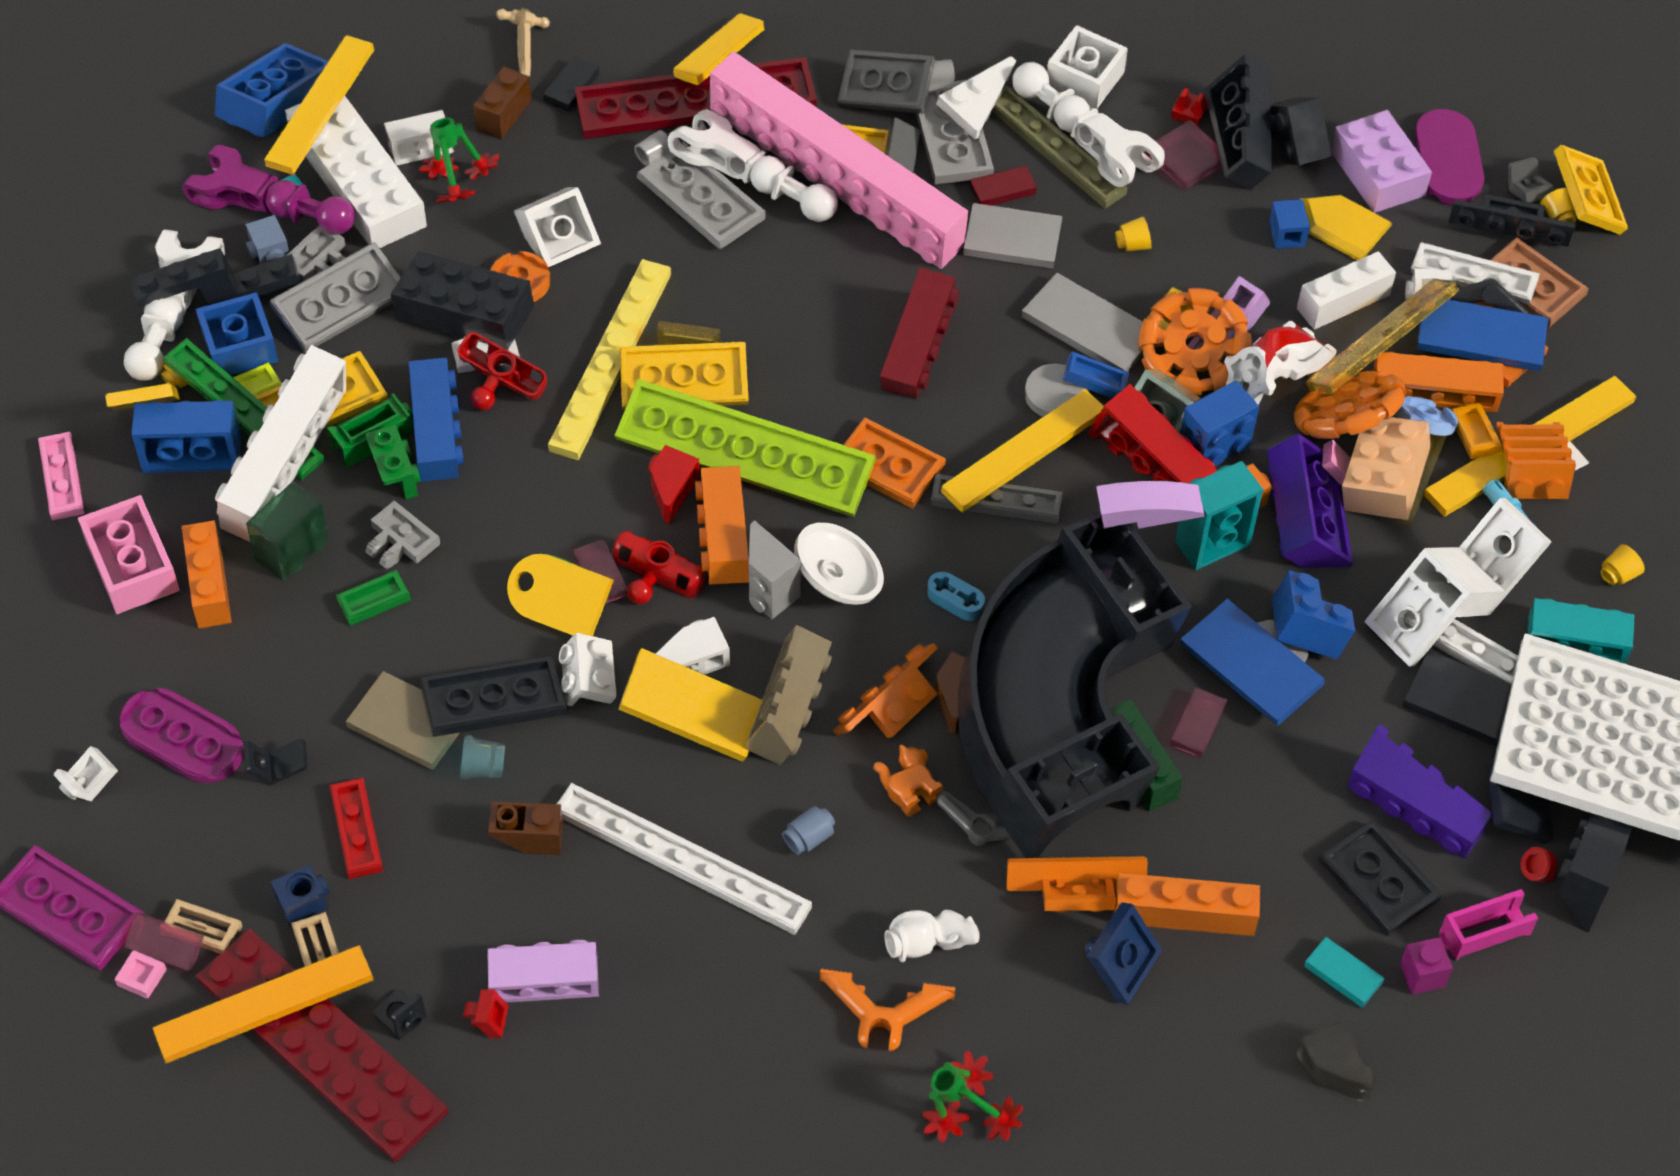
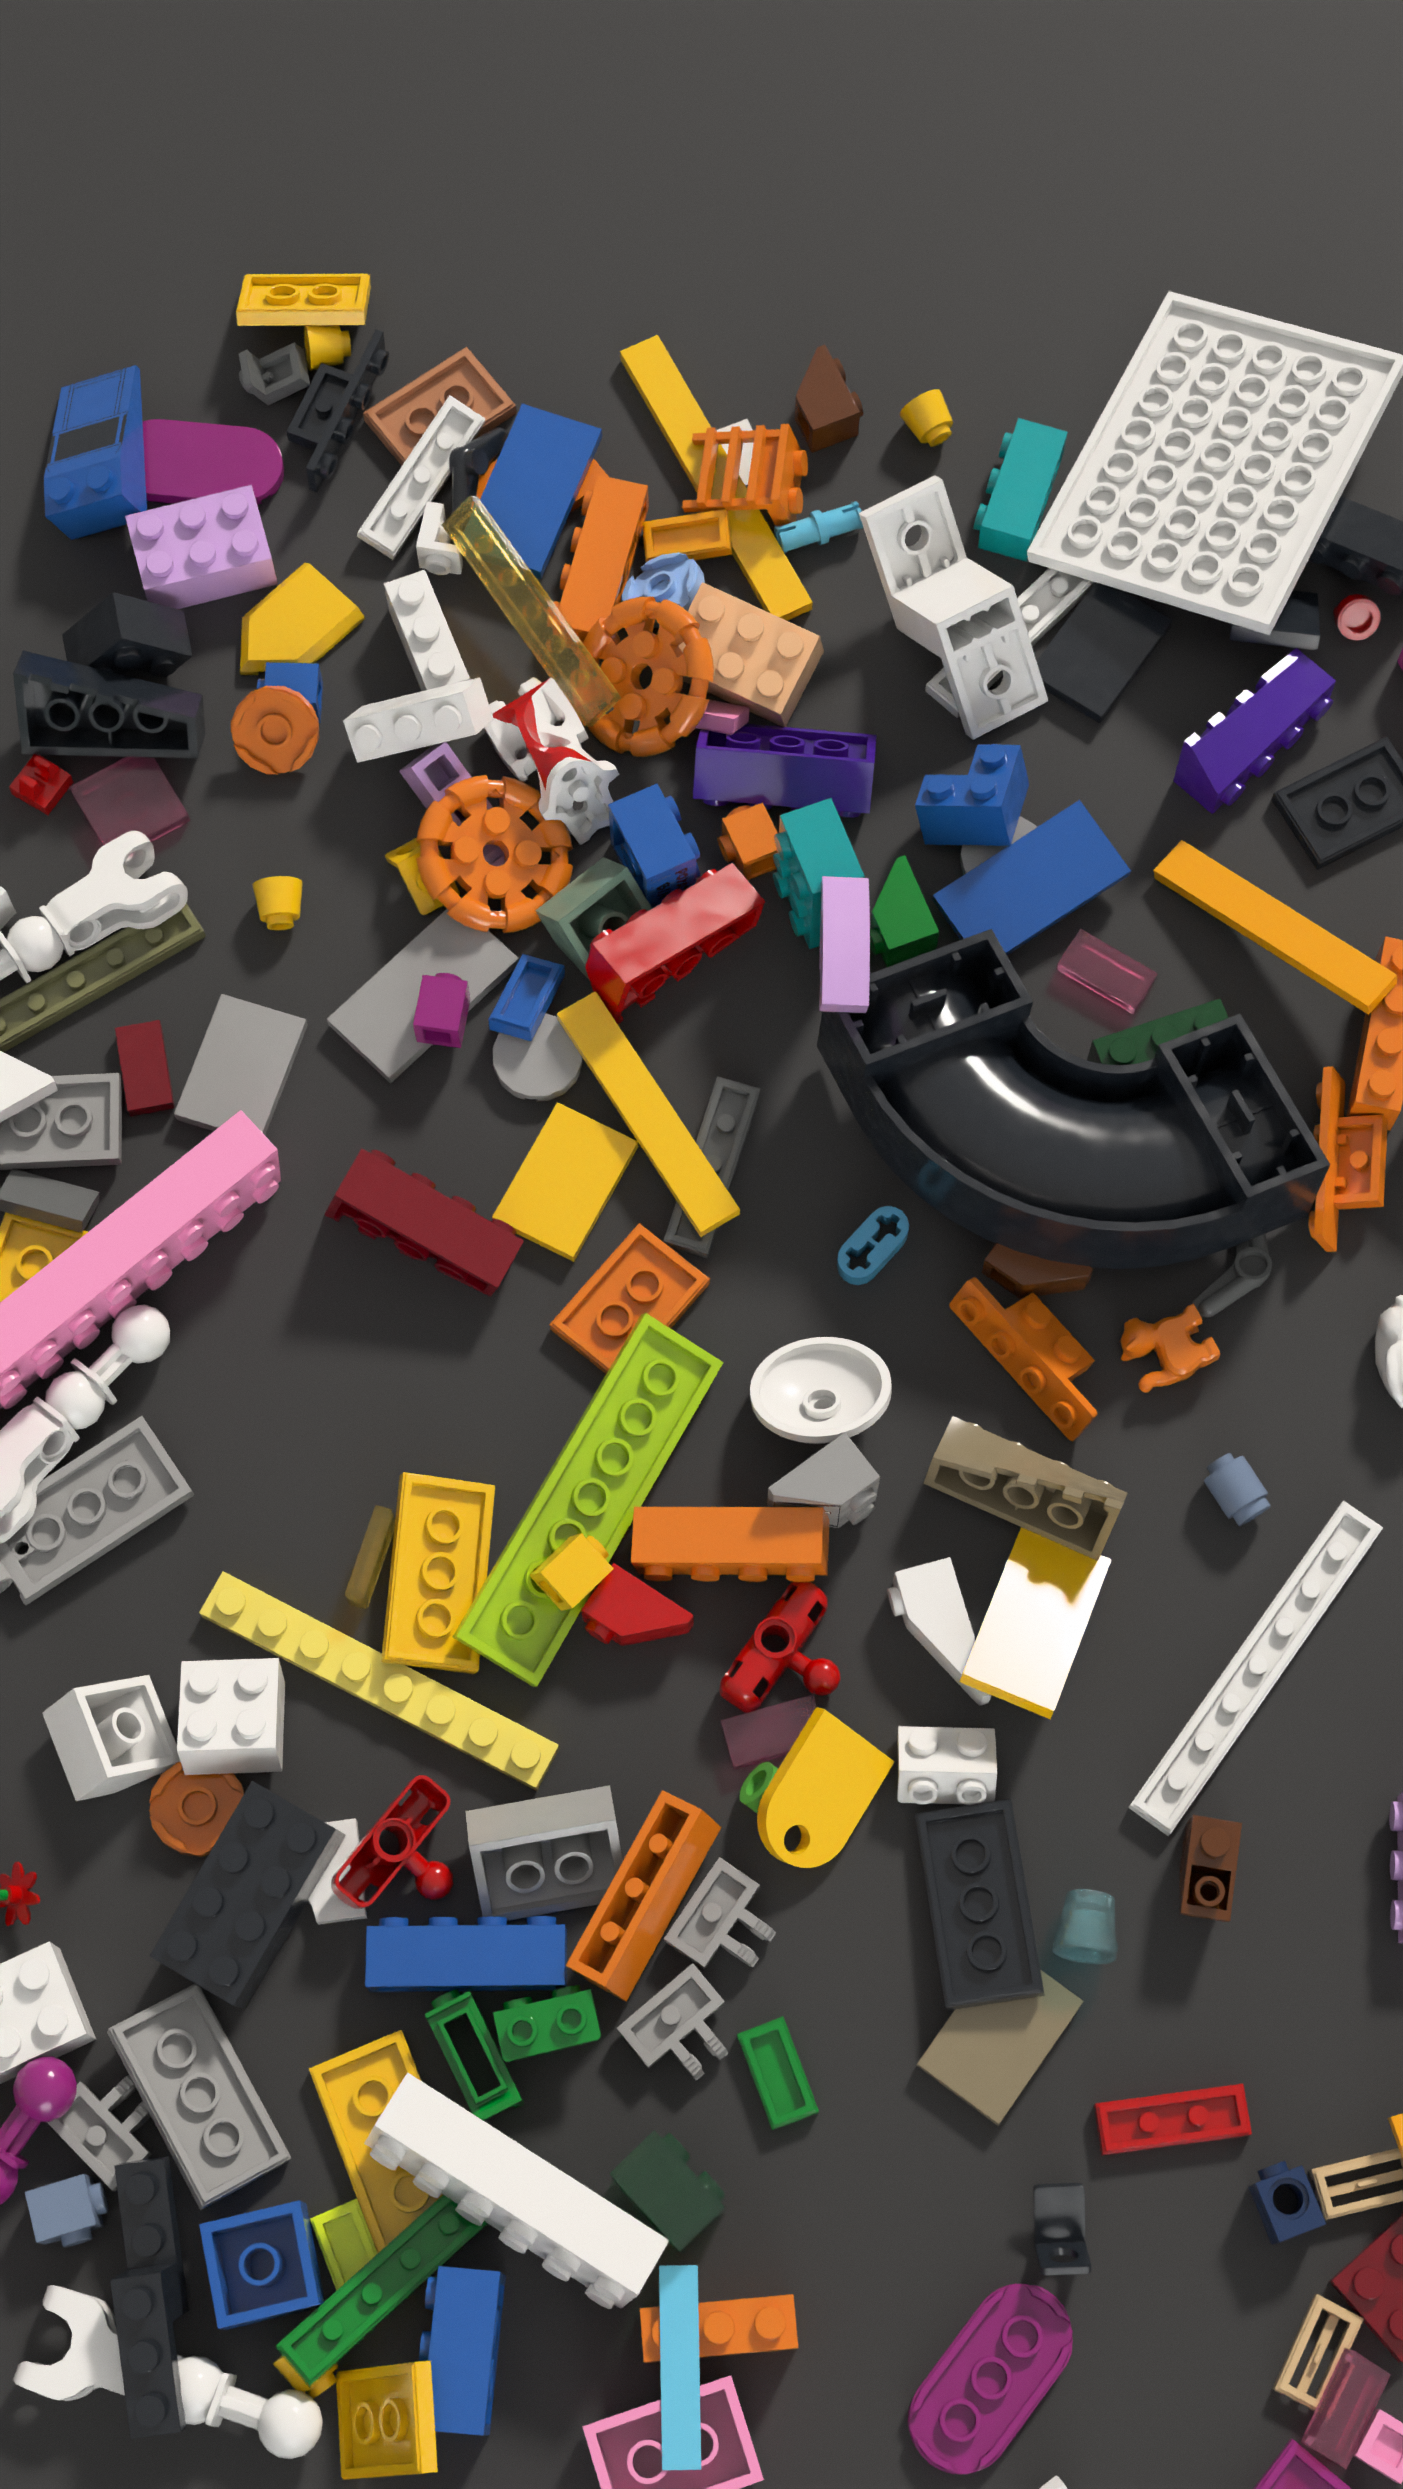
camera: 80 degrees left, 15 degrees up
(177, 540) = (680, 2367): none -> medium azure sticker
(471, 547) = (713, 1913): none -> light grey hinge
(479, 502) = (644, 1895): none -> orange brick
(504, 452) = (544, 1853): none -> light grey slope
(574, 277) = (231, 1716): none -> white brick
(688, 433) = (572, 1570): none -> yellow brick
(968, 416) = (566, 1181): none -> yellow tile
(1072, 324) = (442, 1010): none -> magenta brick
(1210, 584) = (901, 919): none -> green slope
(1252, 817) = (1275, 927): none -> light orange tile
(1256, 214) = (275, 730): none -> orange tile
(1279, 280) = (418, 720): none -> white brick
(1431, 96) = (96, 455): none -> blue slope
(1613, 499) = (824, 405): none -> reddish brown slope

